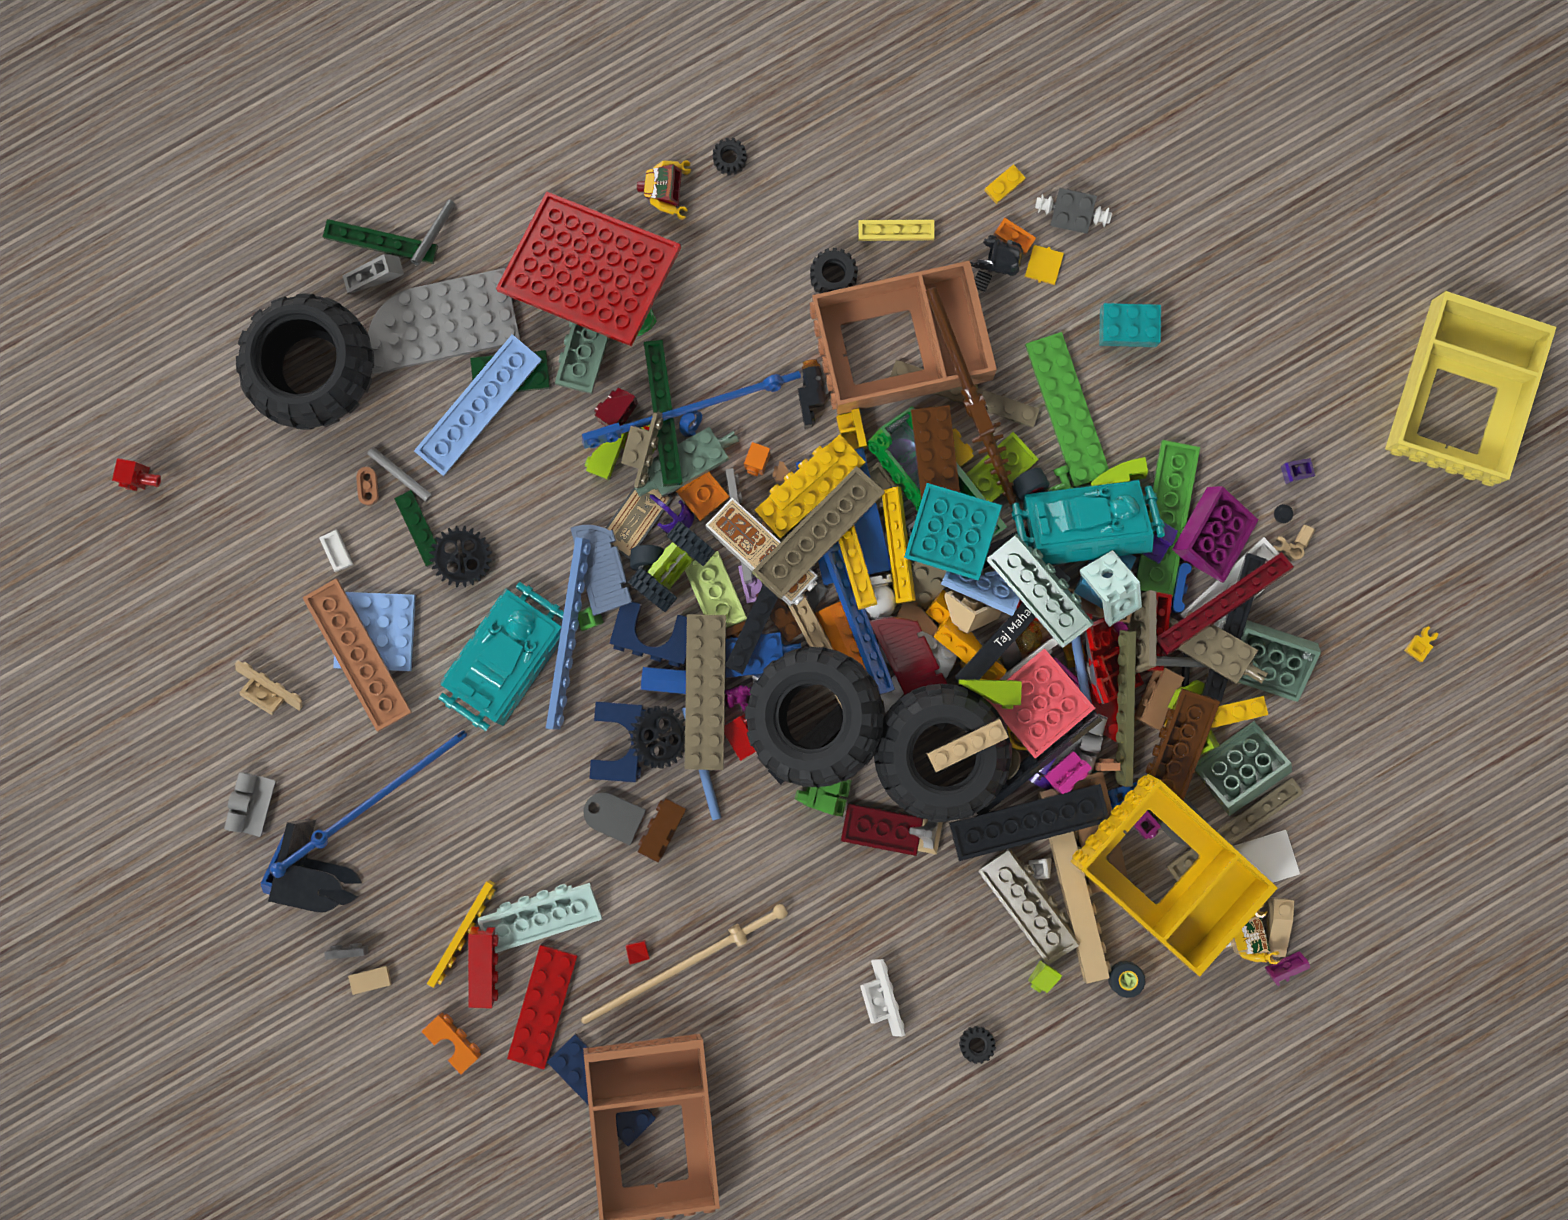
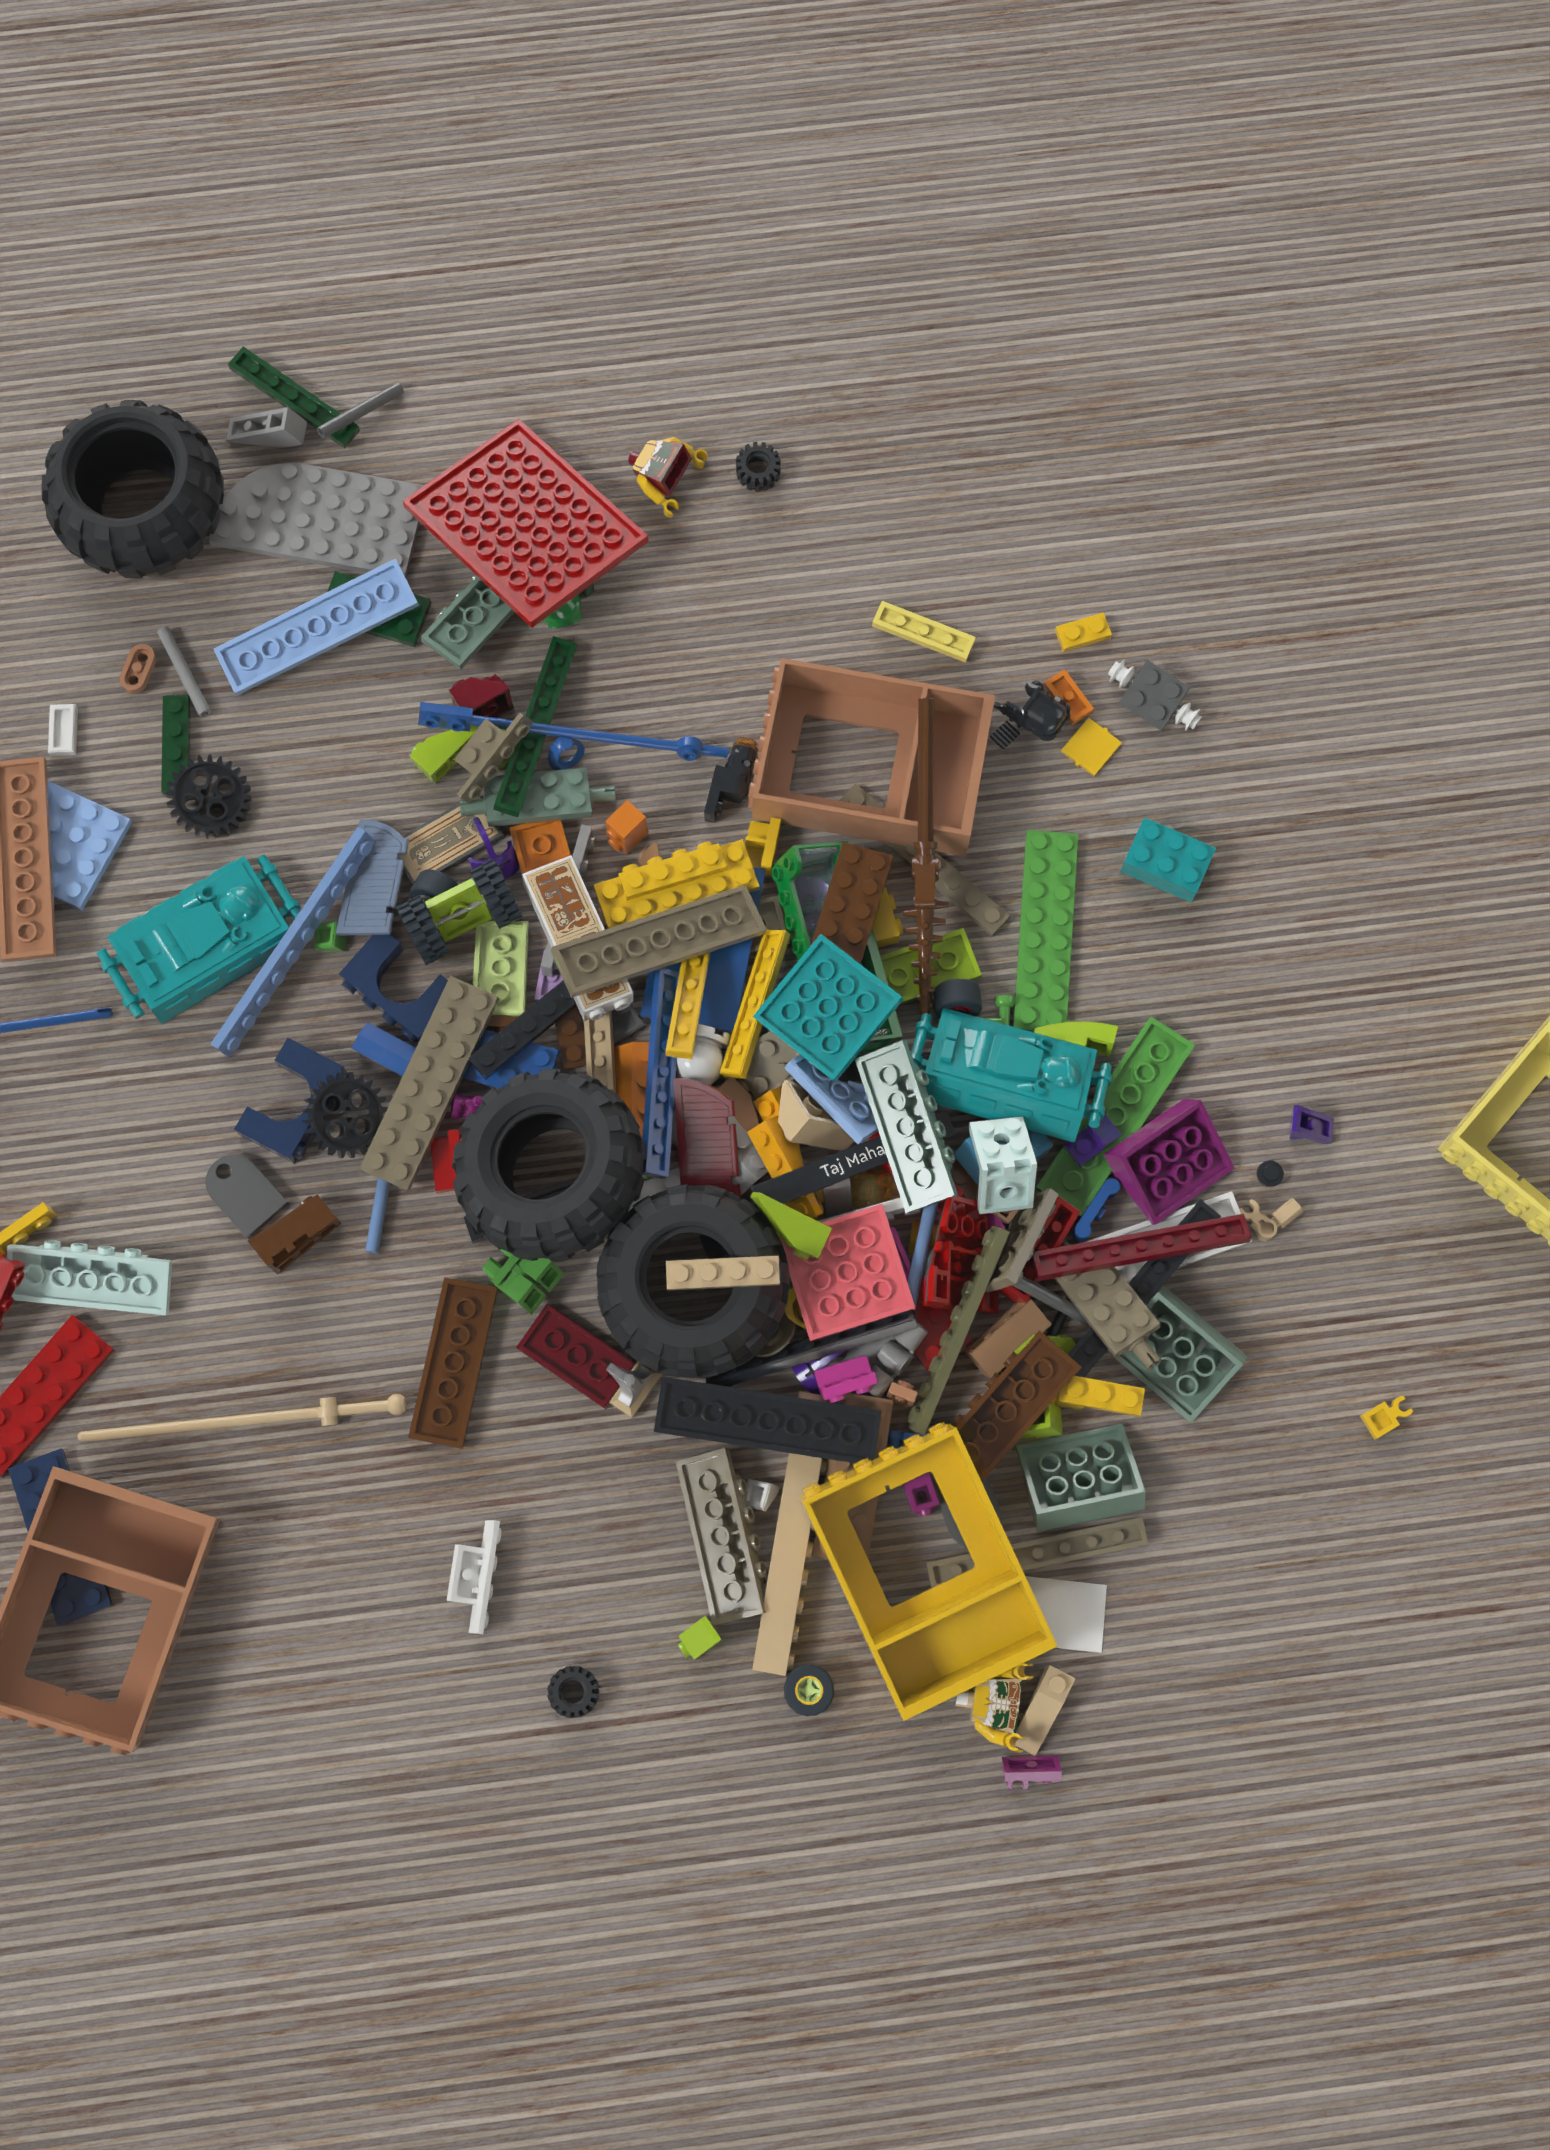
camera: 20 degrees right, 10 degrees down
(637, 952) = (190, 1377): red slope -> none
(804, 869) = (453, 1363): none -> reddish brown plate
(831, 258) = (825, 631): black tyre -> none

